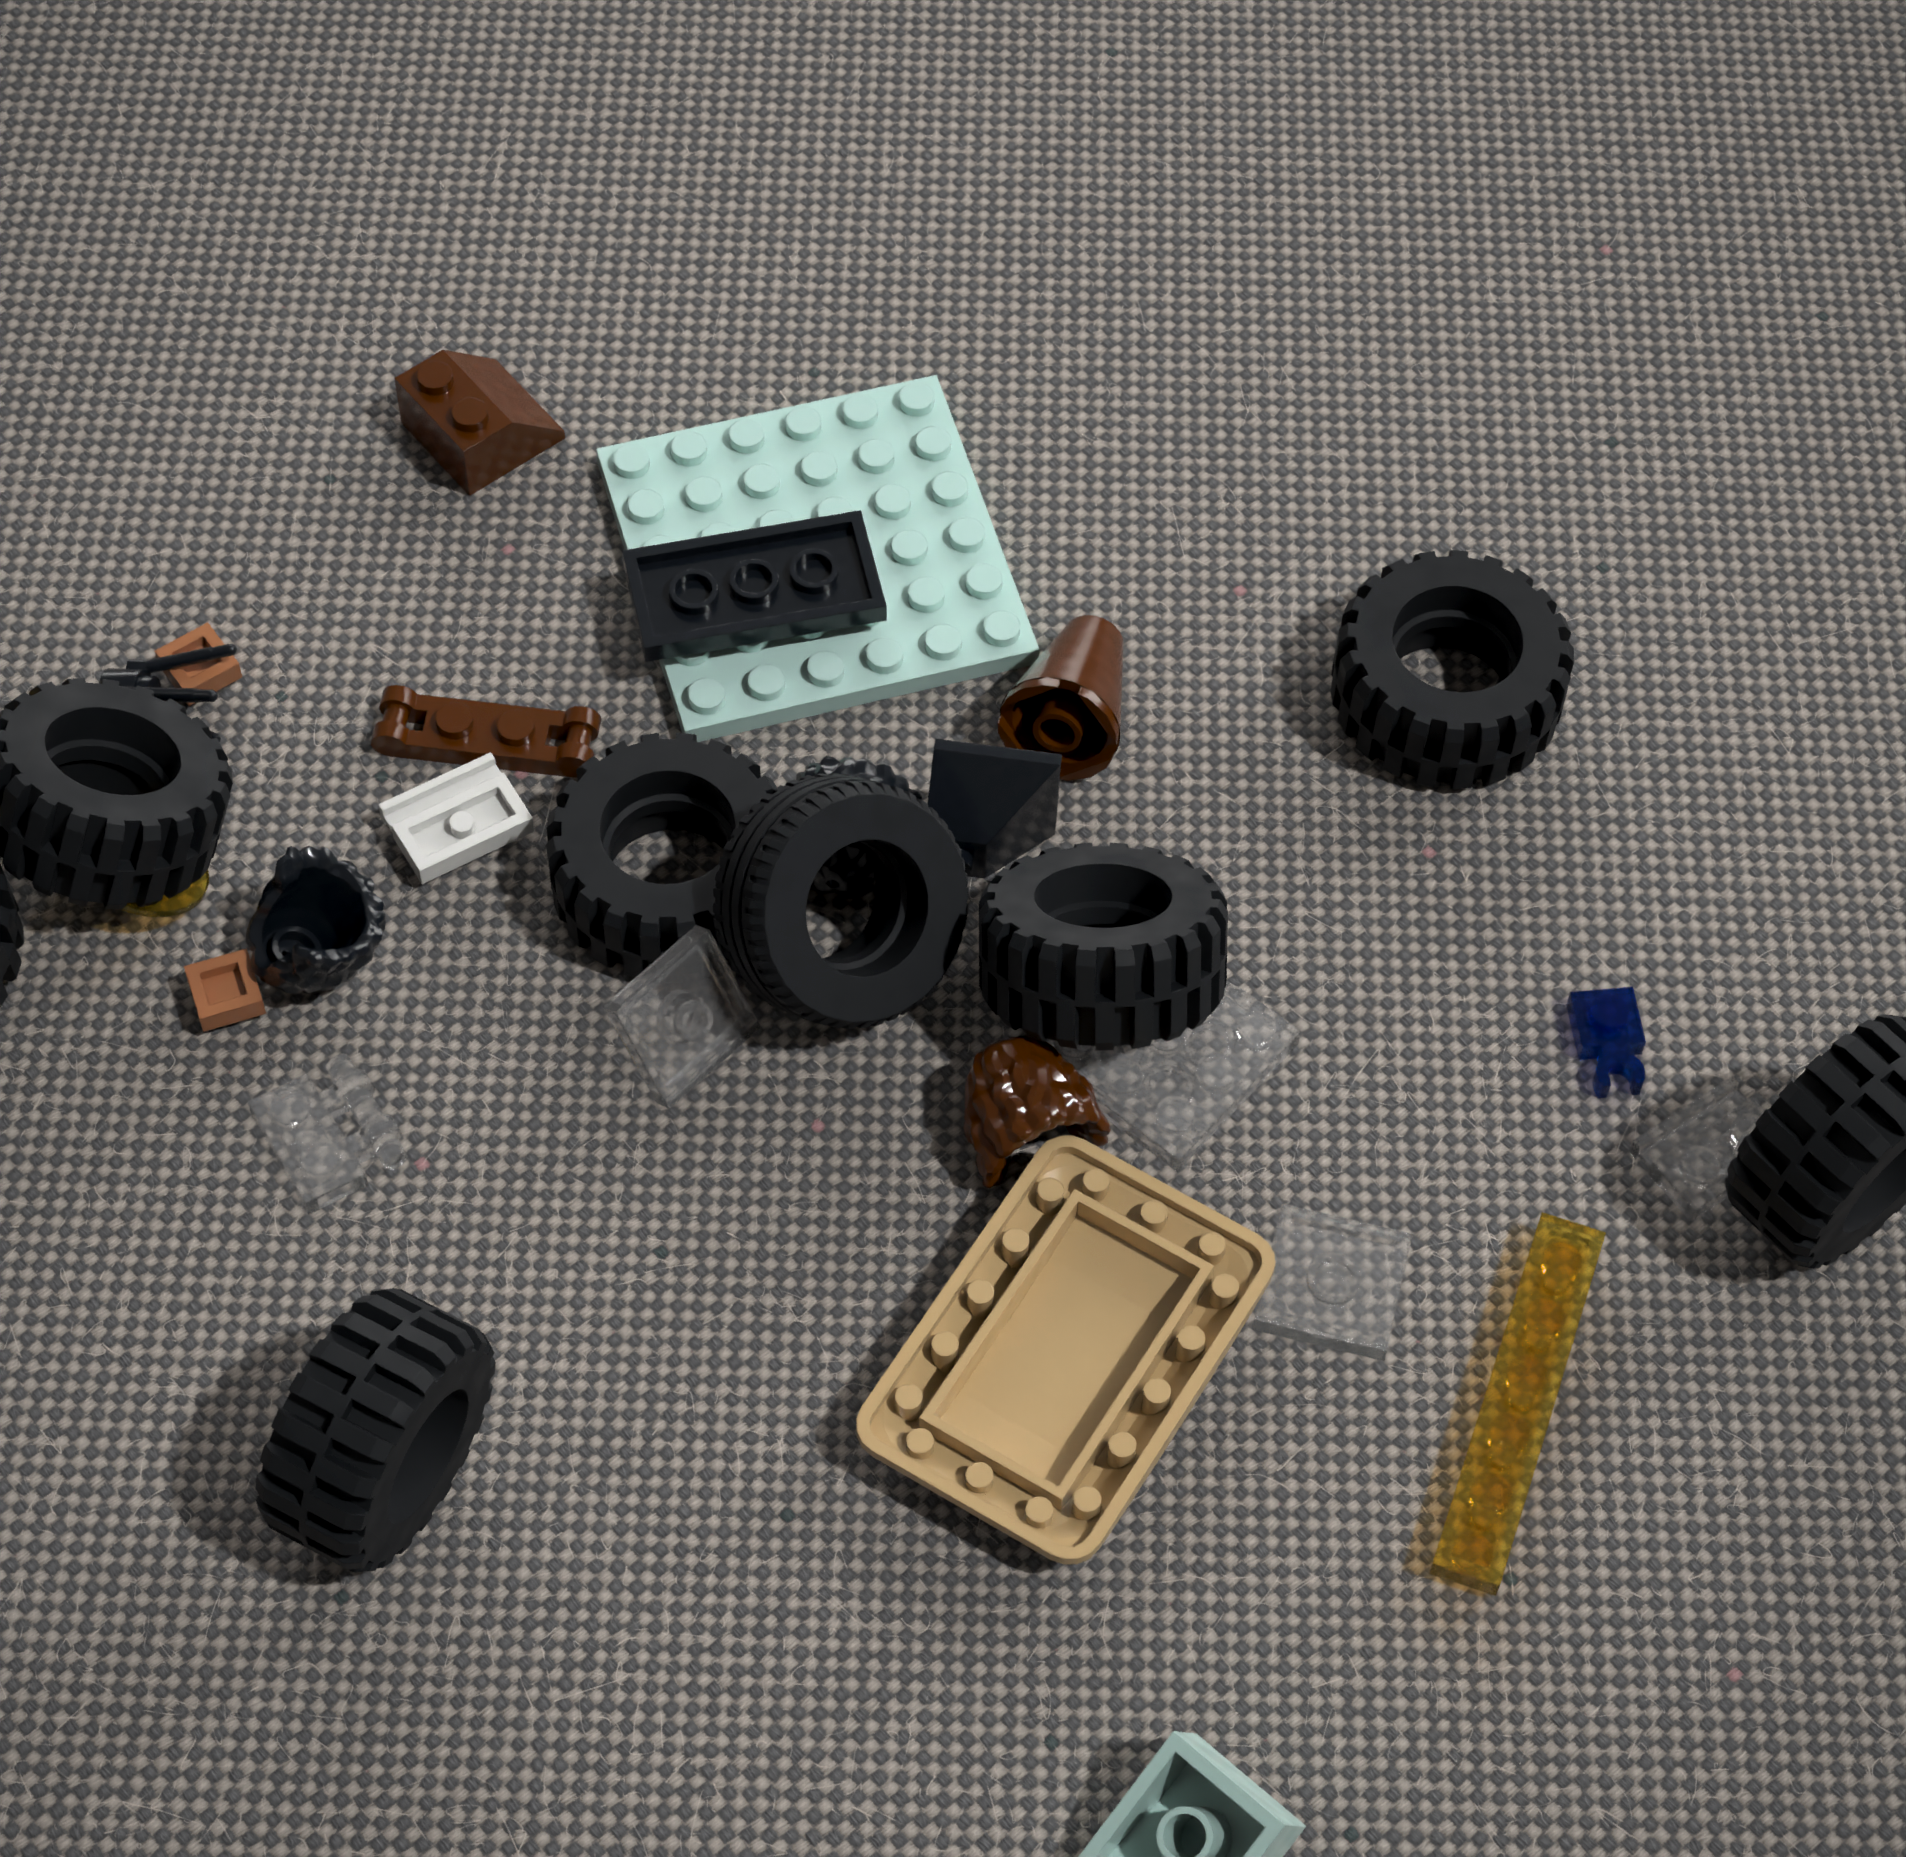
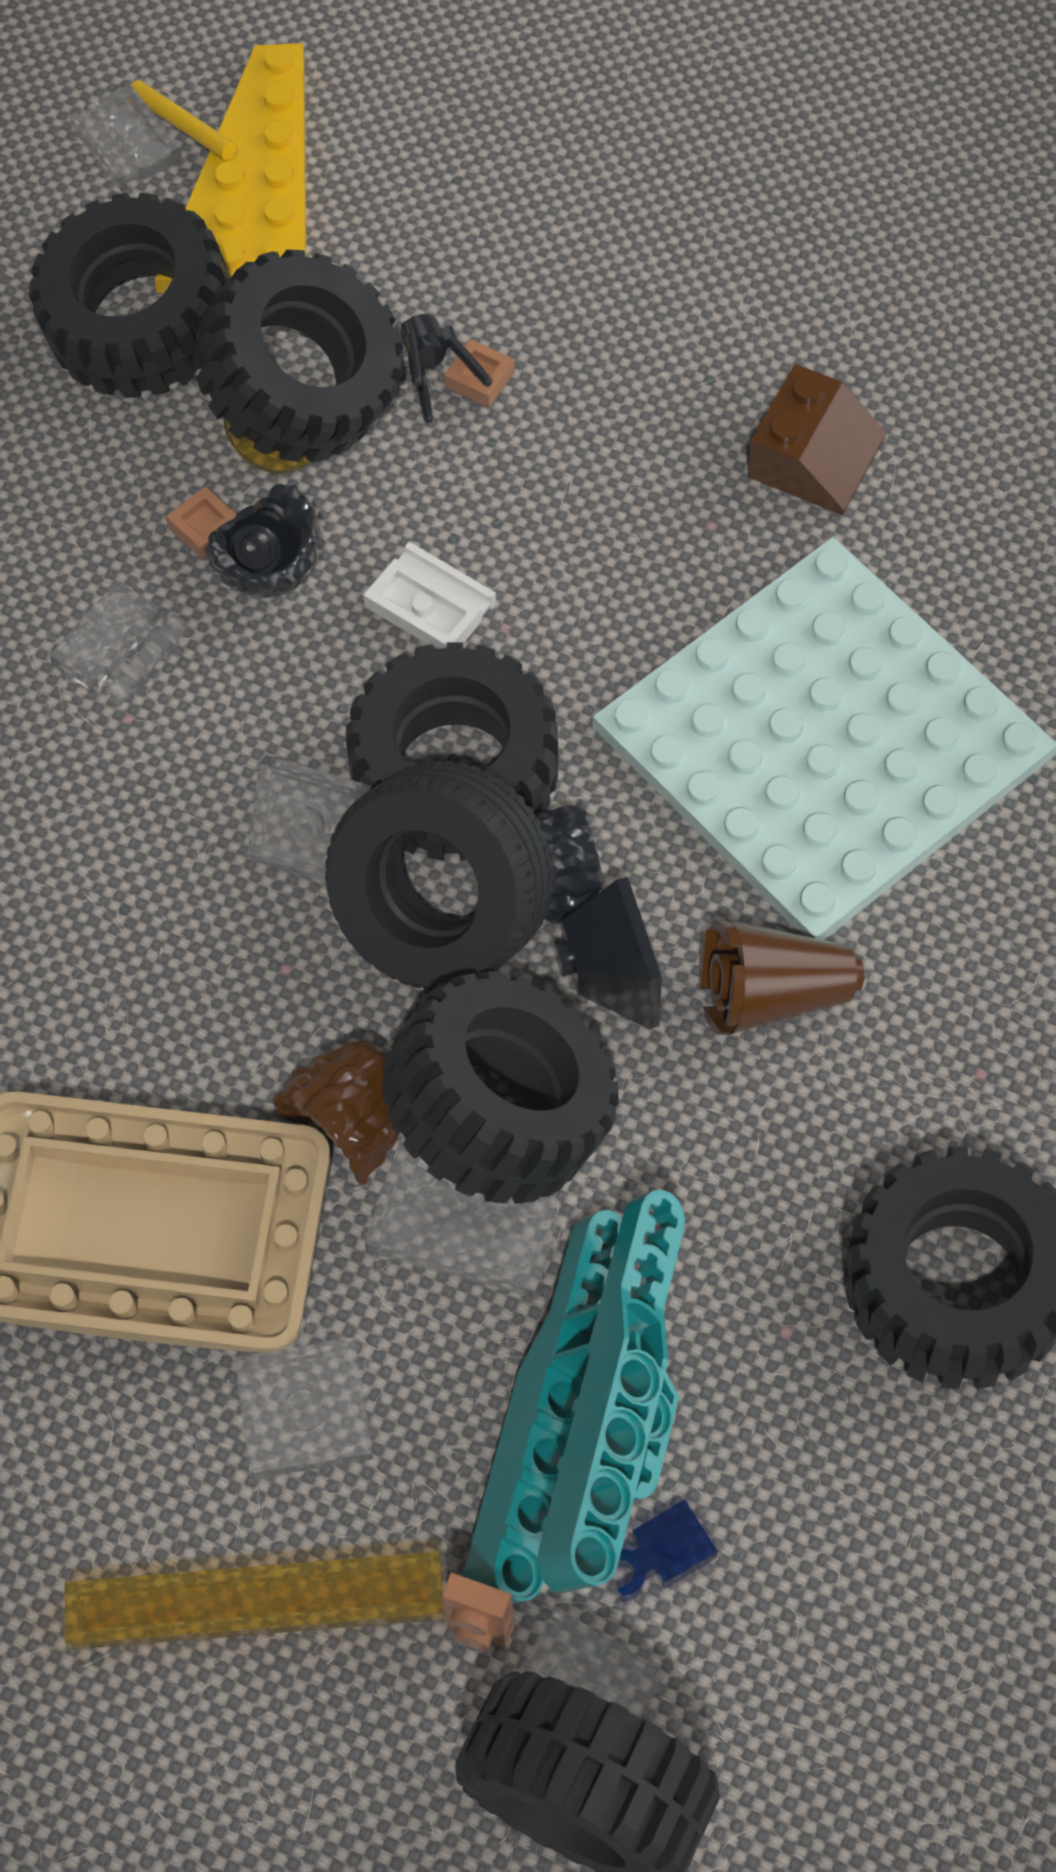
camera: 70 degrees right, 5 degrees up
(467, 729) = (522, 586): reddish brown plate -> none
(754, 585) = (742, 697): black plate -> none
(1491, 989) = (607, 1413): none -> teal beam
(1629, 1189) = (477, 1613): none -> nougat plate

